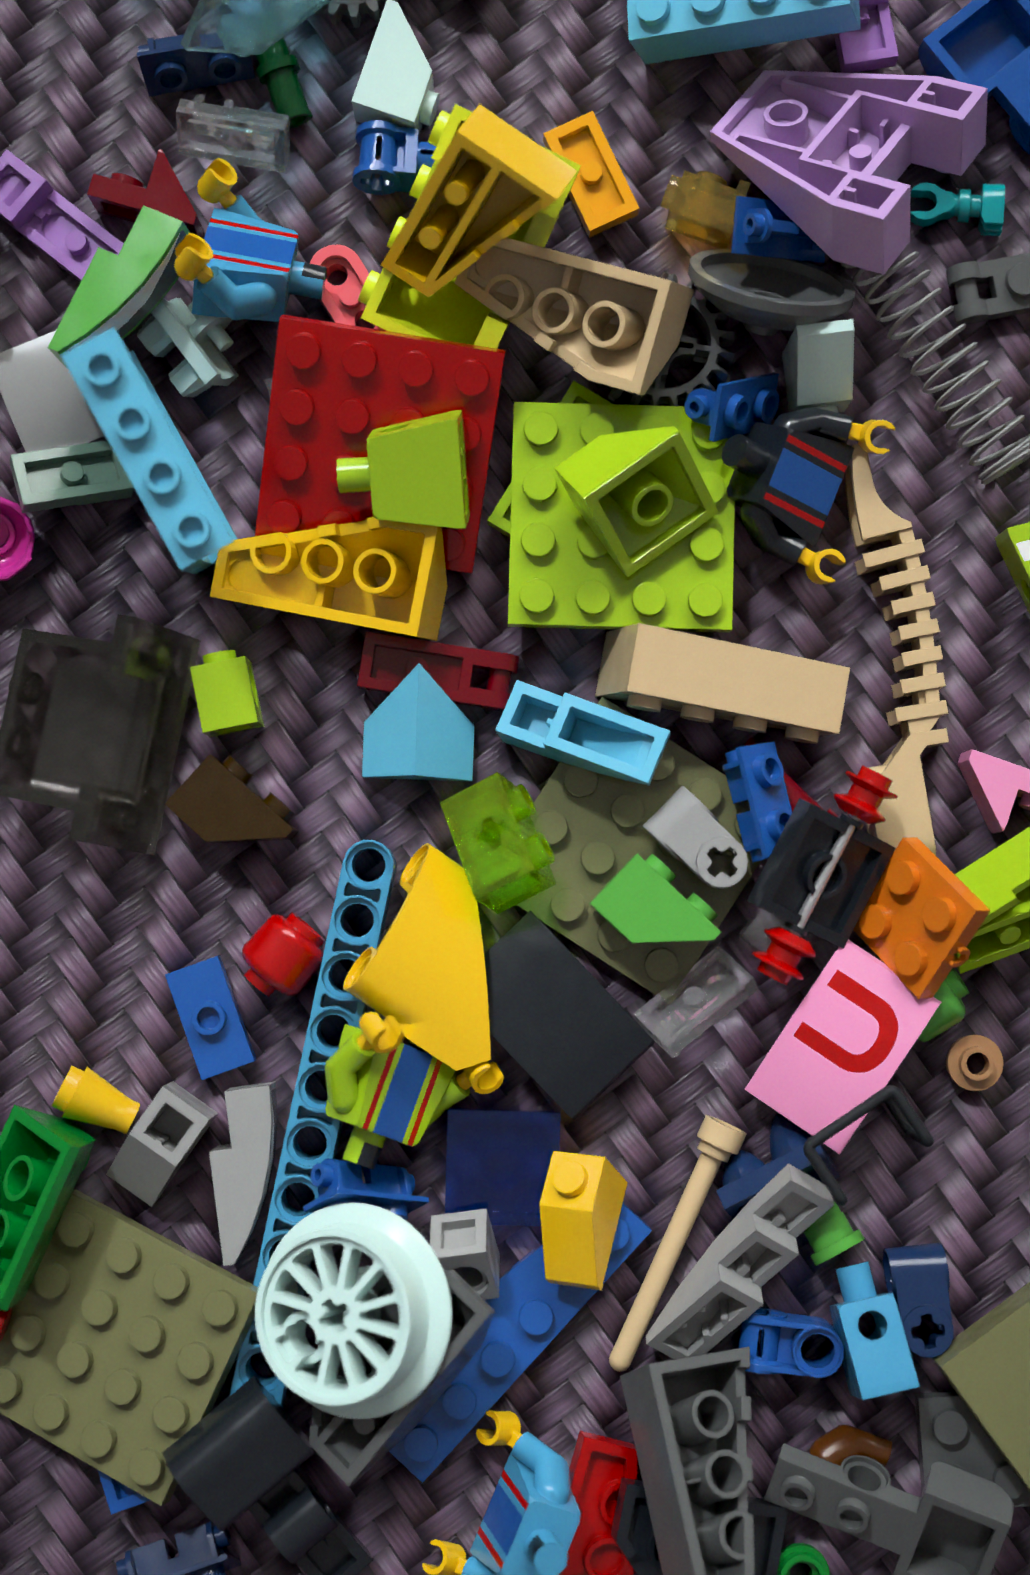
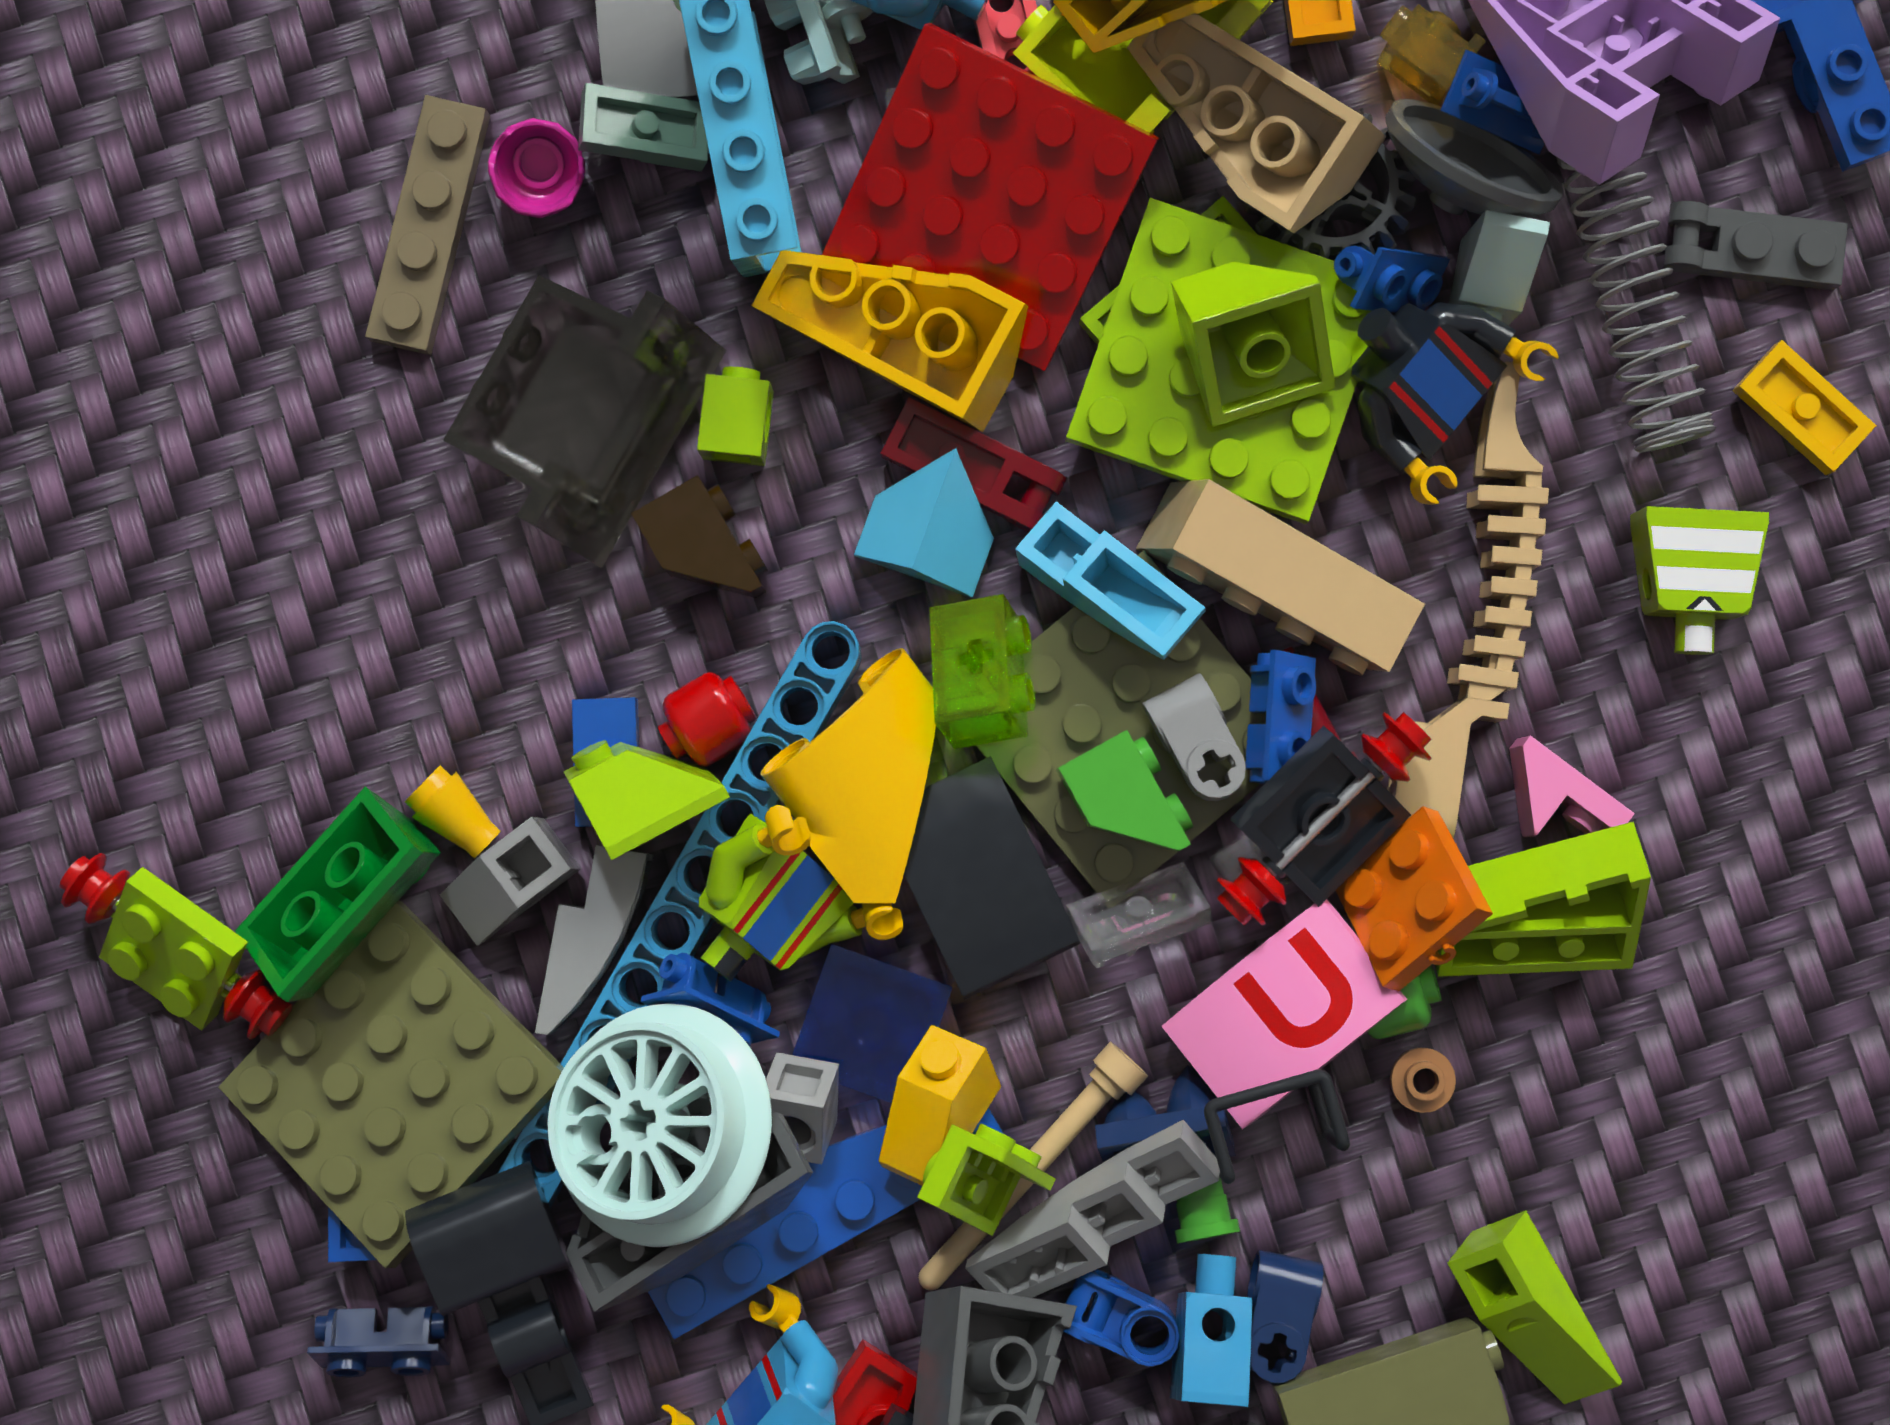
camera: 25 degrees right, 0 degrees up
(246, 1037) = (638, 793): none -> lime slope
(413, 472) = (1016, 238): lime torso -> none
(632, 1266) = (977, 1175): none -> lime bracket
(986, 206) = (1713, 140): teal piece -> none

